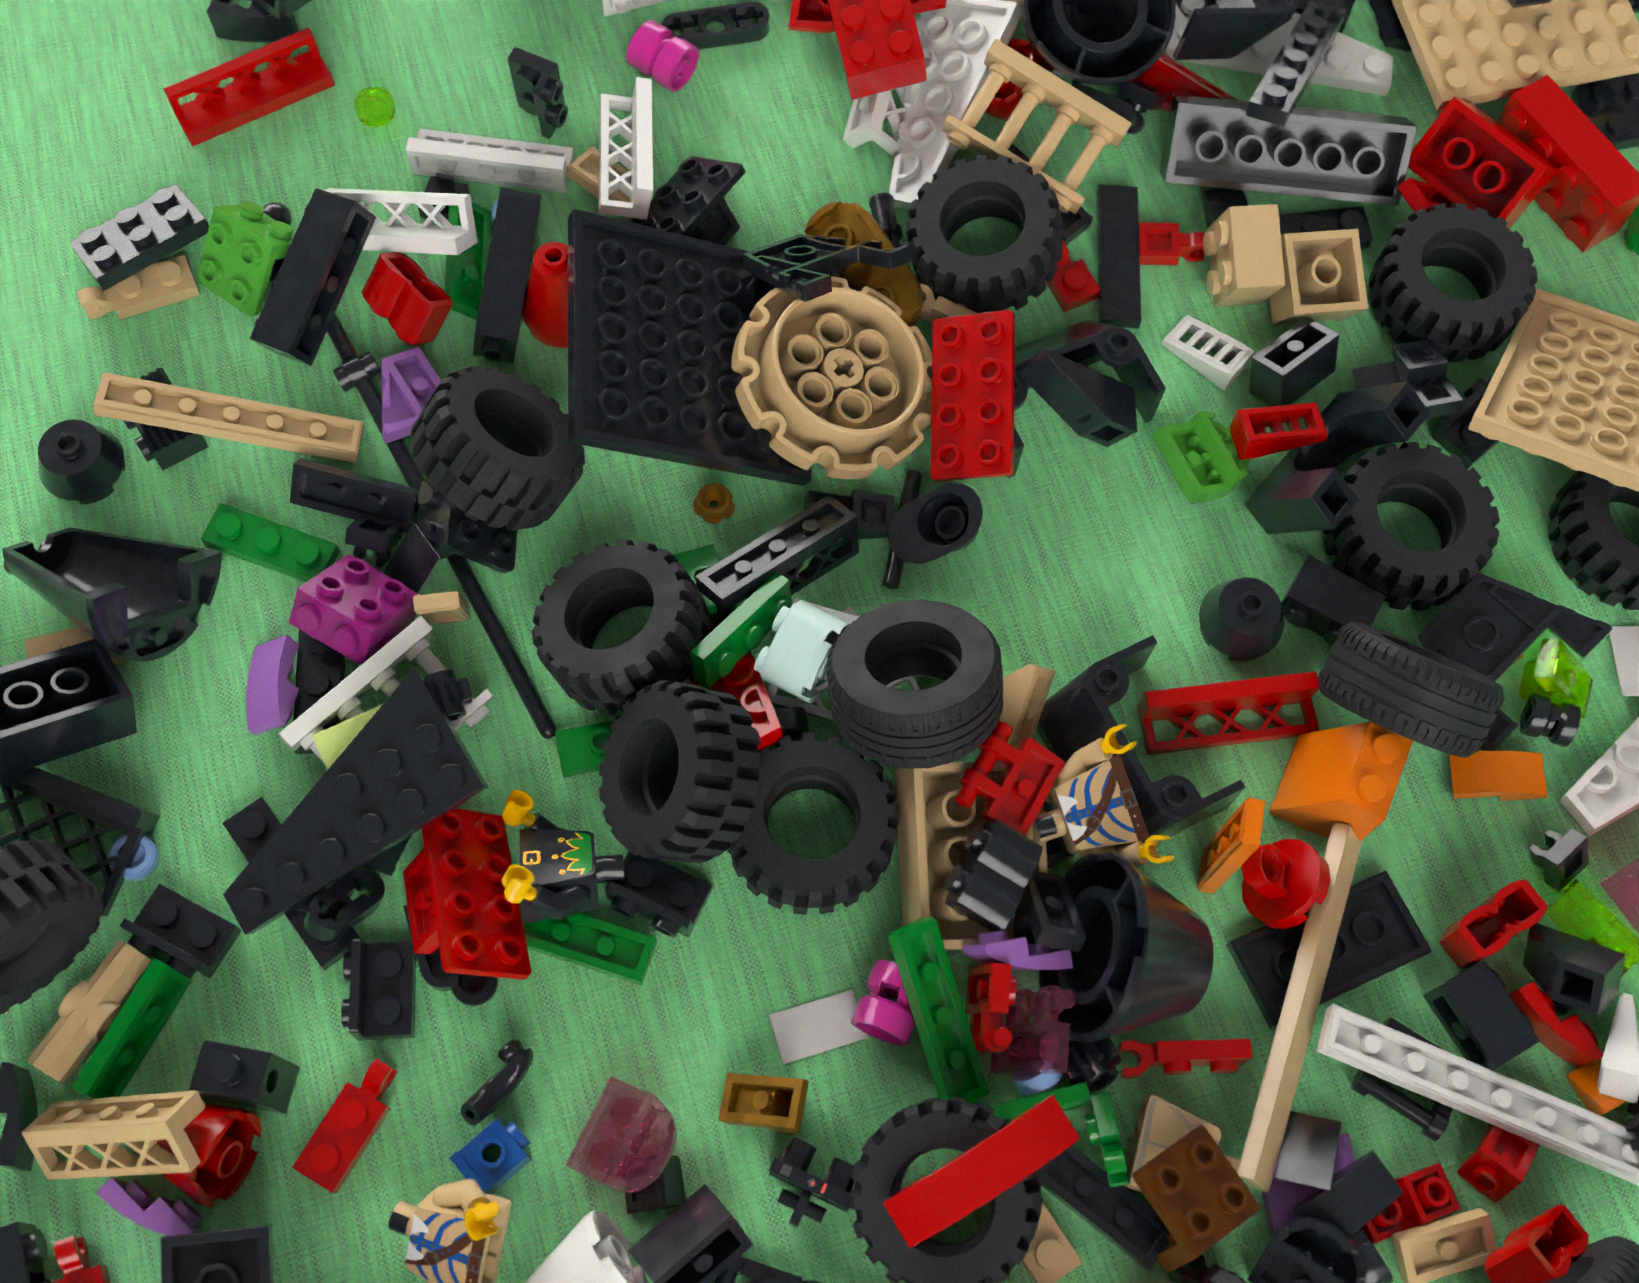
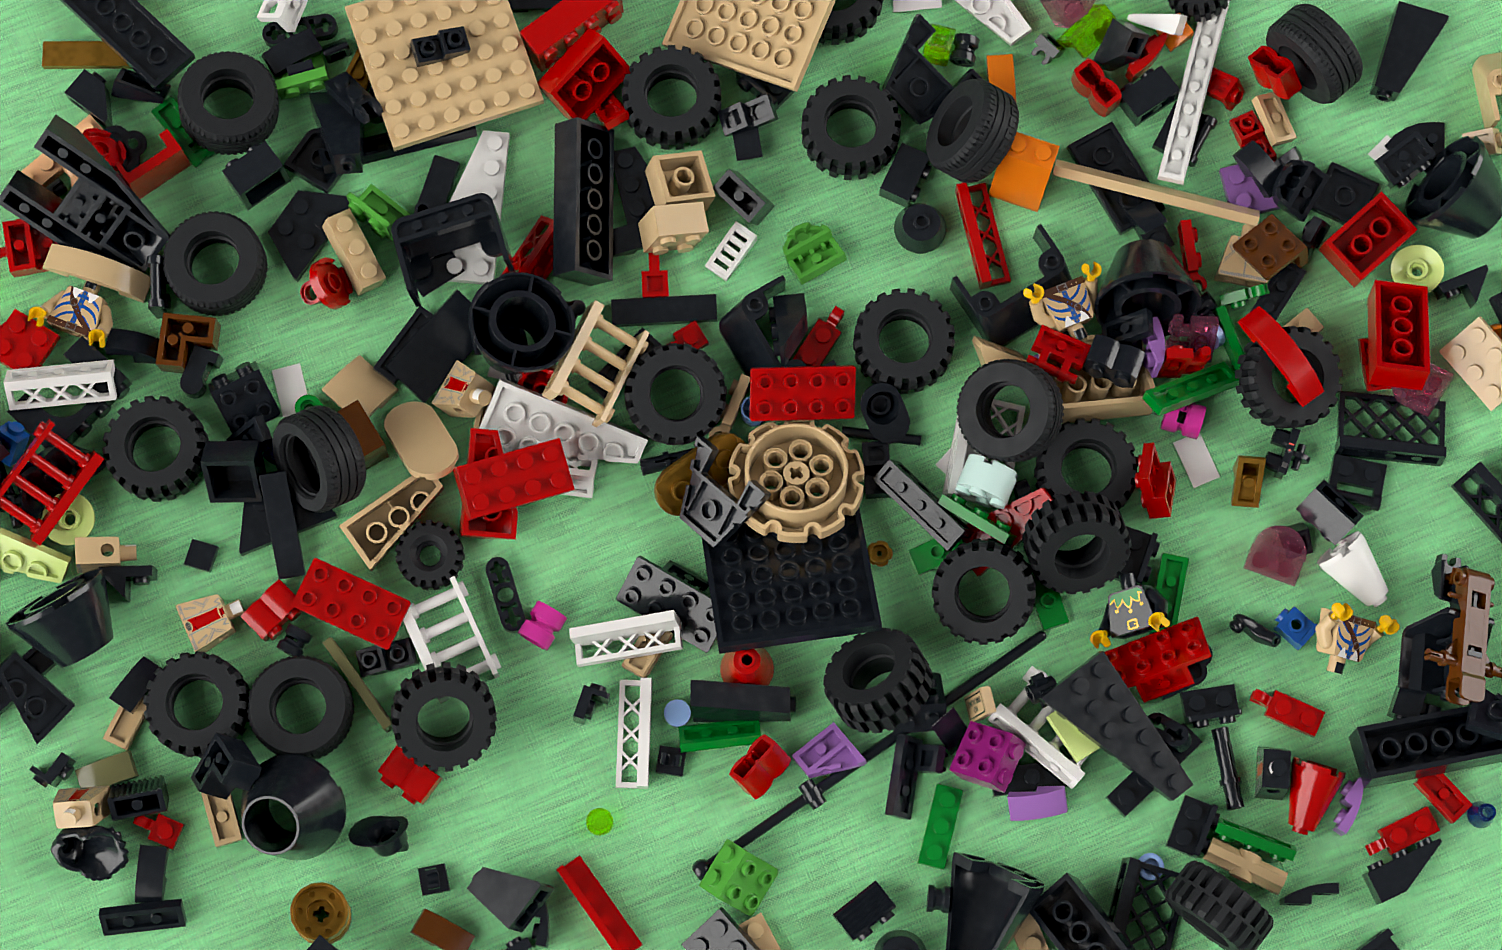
camera: 90 degrees left, 10 degrees up
(107, 1123) = (1314, 826): tan fence -> none
(155, 520) = (938, 899): none -> black wheel
(228, 417) = (864, 862): tan tile -> none
(265, 1004) = (1228, 772): none -> black pin
(313, 276) = (758, 827): black brick -> none
(409, 235) = (714, 780): white fence -> none
(774, 928) = (1156, 483): none -> red plate
(1060, 516) = (911, 308): none -> black tyre
(1062, 457) = (821, 339): none -> red plate
(1231, 845) = (1082, 231): orange tile -> none
(1240, 990) = (1149, 223): none -> black slope
(1251, 436) = (801, 227): red slope -> none
(1284, 882) = (1088, 201): red tile -> none
(1296, 63) = (520, 193): black plate -> none
(1306, 487) = (786, 167): black arch -> none
(1309, 1150) = (1234, 189): black sticker -> none

